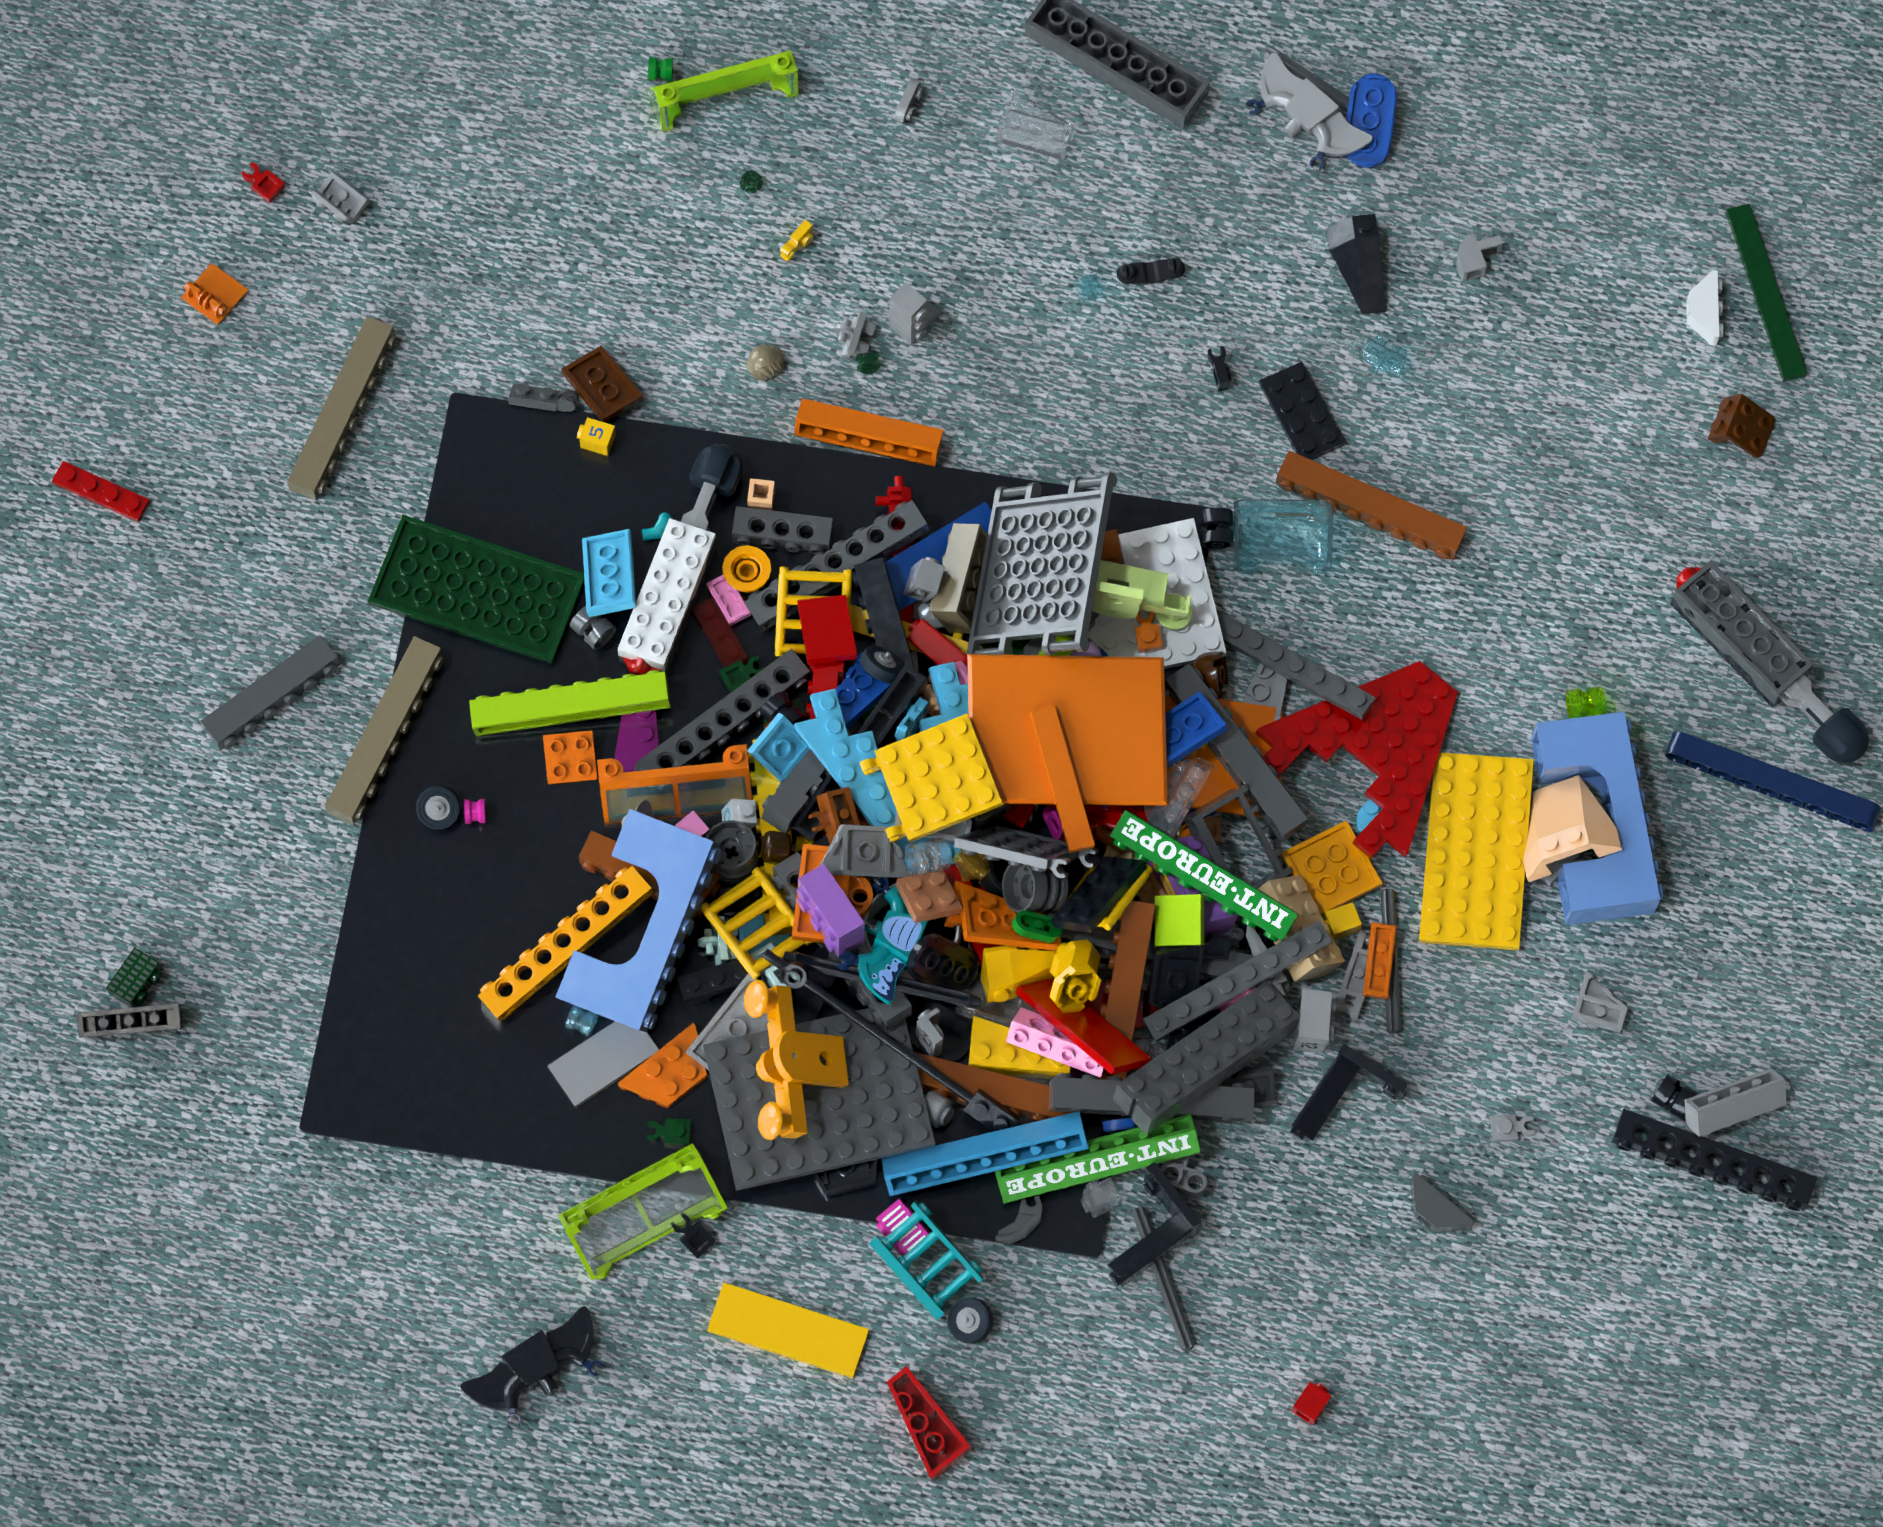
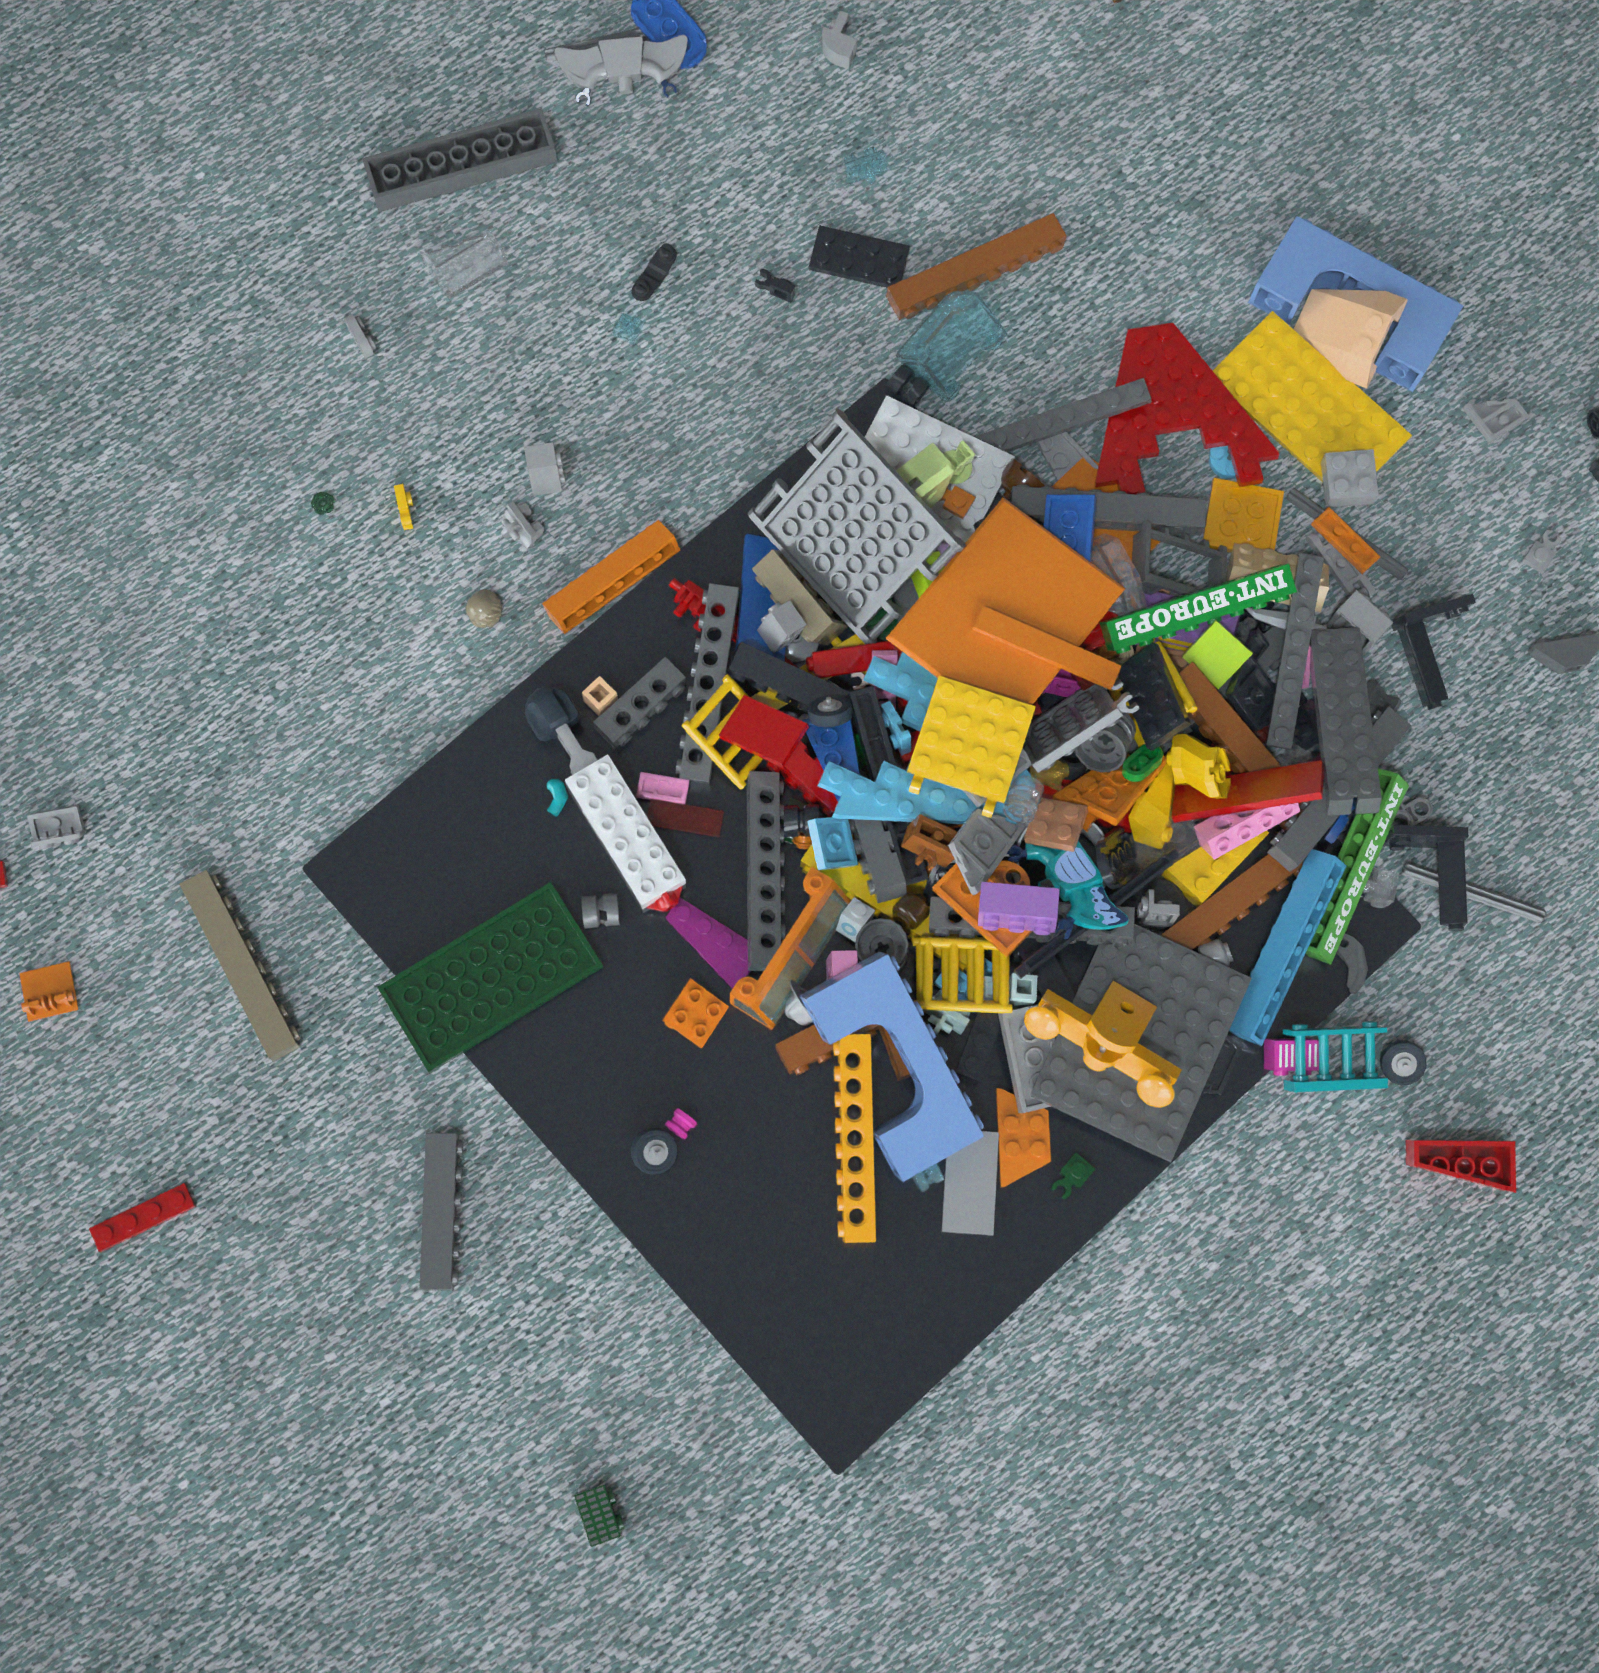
camera: 55 degrees left, 5 degrees up
(129, 1020) = (634, 1548): brick -> none
(384, 731) = (551, 1144): dark tan brick -> none
(534, 1365) = (1185, 1434): black torso -> none
(543, 398) = (369, 800): dark grey hinge -> none
(569, 703) = (652, 978): lime brick -> none
(596, 436) = (439, 783): yellow brick -> none
(602, 384) = (397, 746): reddish brown plate -> none
(609, 573) = (568, 862): medium azure plate -> none
(641, 1210) = (1120, 1248): clear windscreen -> none
(665, 72) = (166, 496): green wheel -> none
(695, 1237) = (1173, 1224): black plate -> none
(738, 674) = (733, 830): dark green plate -> none
(746, 569) = (653, 754): light orange piece -> none
(775, 68) = (250, 407): lime windscreen -> none
(788, 1330) = (1303, 1209): yellow tile -> none
(868, 362) = (552, 533): clear green plate -> none
(929, 695) = (883, 697): light nougat pin -> none
(979, 1106) = (1242, 921): black bar -> none
(1342, 921) = (1292, 540): yellow brick -> none
(1358, 257) = (767, 119): black wedge -> none
(1432, 922) = (1349, 478): none -> light grey brick
(1585, 703) = (1256, 242): clear neon green wheel -> none
(1763, 656) = (1320, 94): dark grey piece -> none
(1773, 780) = (1416, 165): dark blue beam -> none

